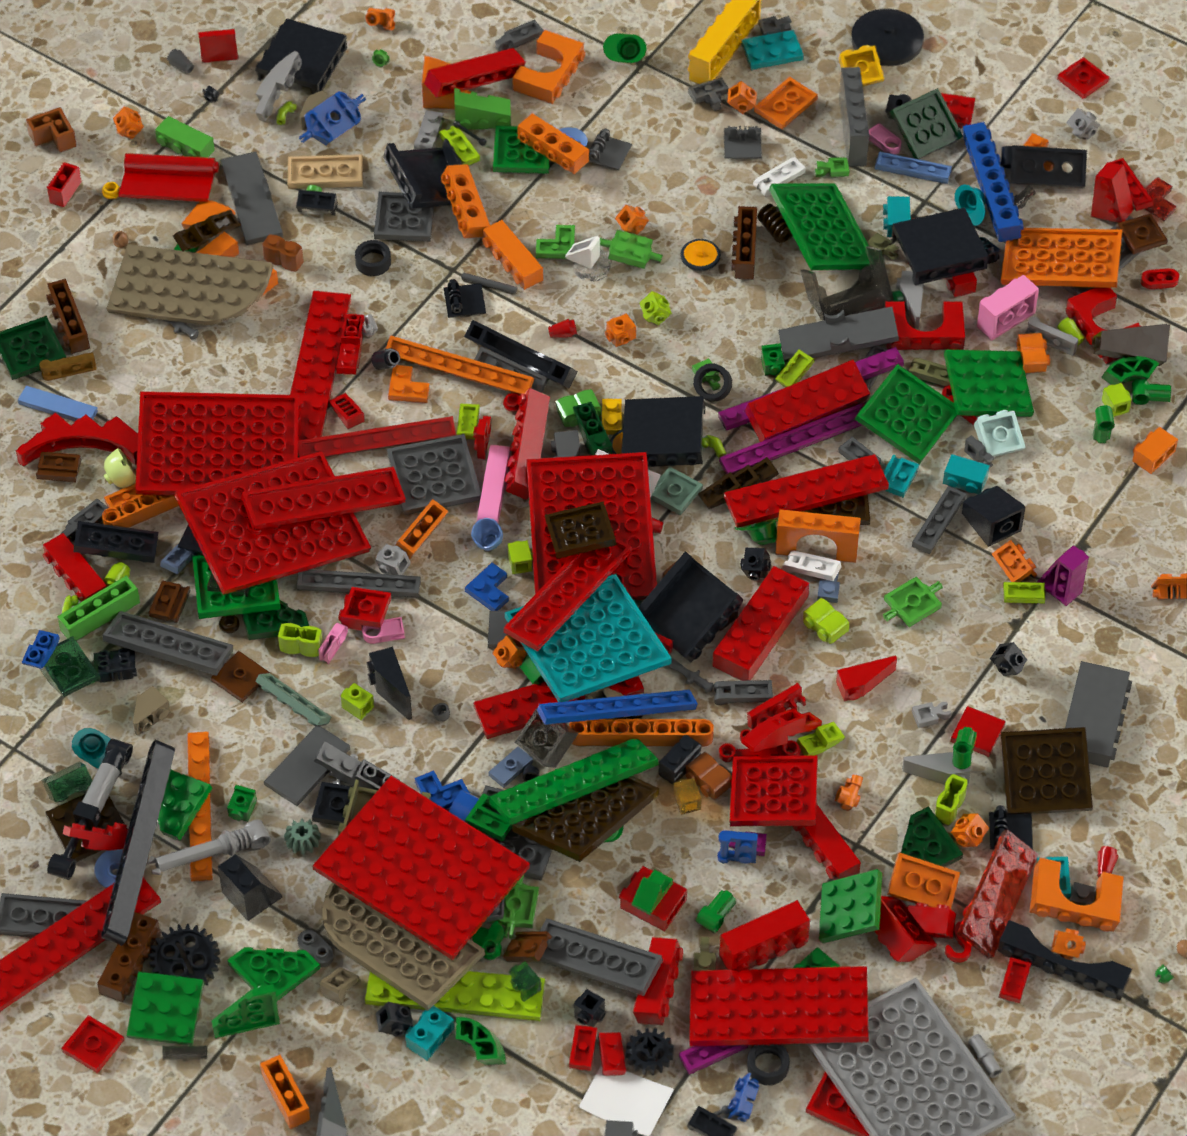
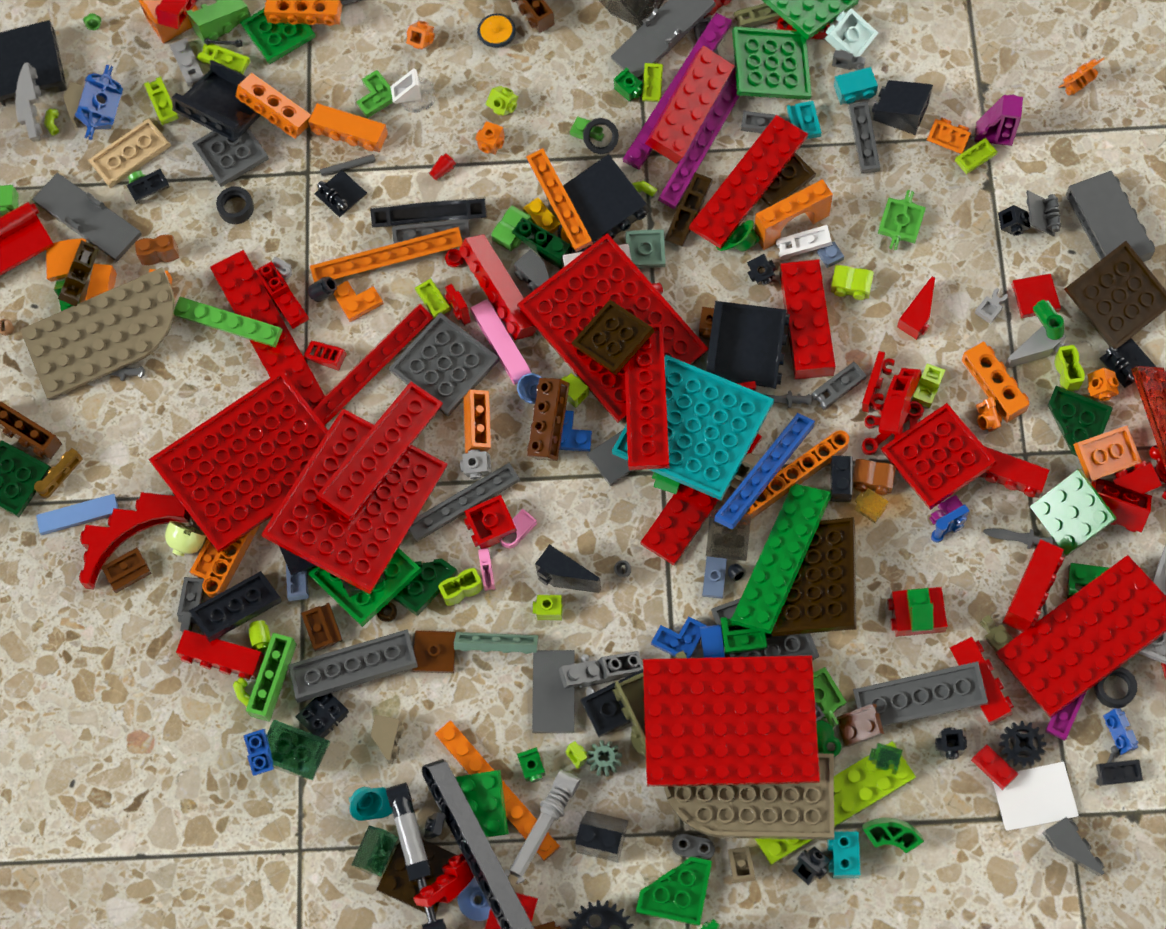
camera: 30 degrees left, 15 degrees up
(127, 792) = (434, 825): none -> black plate
(283, 819) = (576, 754): none -> lime plate
(291, 337) = (227, 322): none -> bright green plate
(382, 138) = (161, 101): none -> lime plate
(477, 562) = (548, 419): none -> reddish brown brick
(509, 653) = (636, 481): orange brick -> none
(583, 1047) = (970, 778): red plate -> none
(630, 249) = (439, 61): bright green plate -> none
(631, 405) = (559, 200): none -> orange plate
(713, 915) = (973, 591): green piece -> none
(784, 894) = (1026, 538): none -> dark grey sword
(880, 800) = (984, 376): none -> orange brick
(1038, 668) = (1044, 213): none -> dark grey hinge

